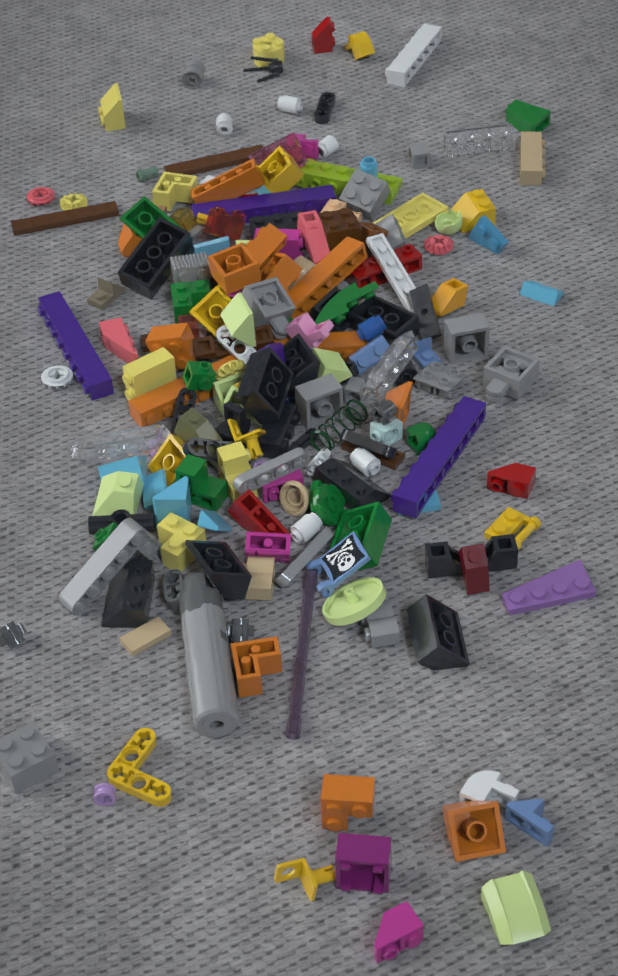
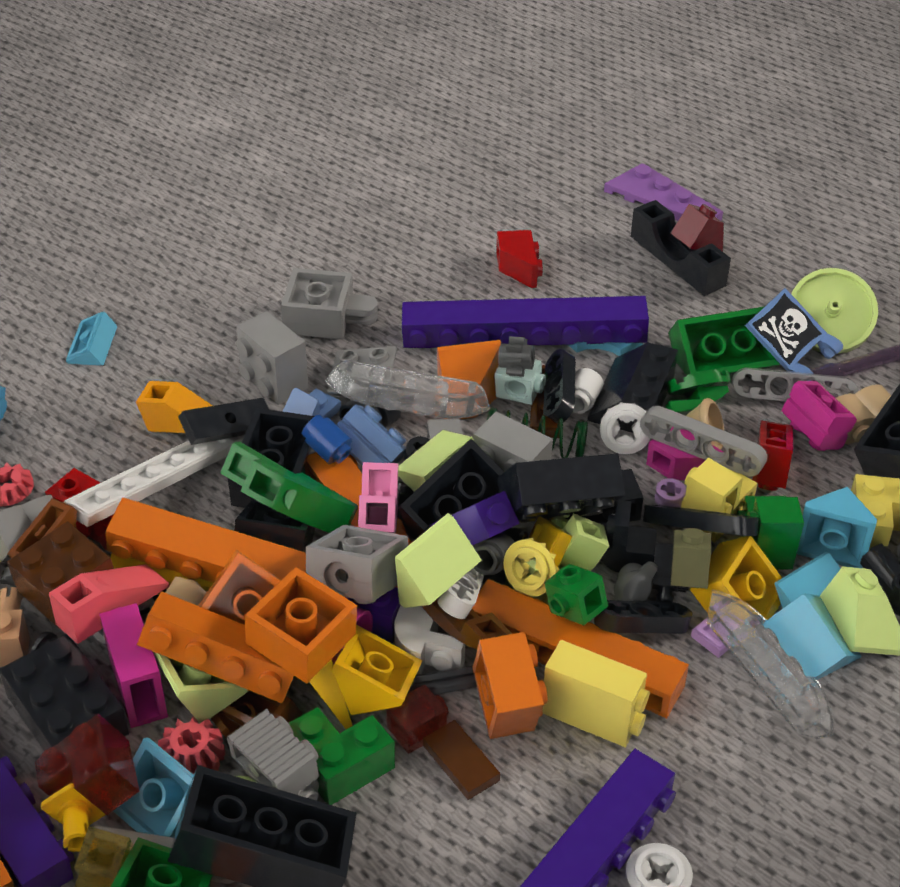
camera: 120 degrees left, 0 degrees up
(117, 339) = (503, 822): coral slope -> none
(213, 521) = (833, 477): medium azure slope -> none
(250, 438) = (648, 497): yellow bracket -> none
(306, 528) = (748, 401): white brick -> none
(437, 635) = (813, 247): black slope -> none
(510, 522) = (594, 251): yellow plate -> none

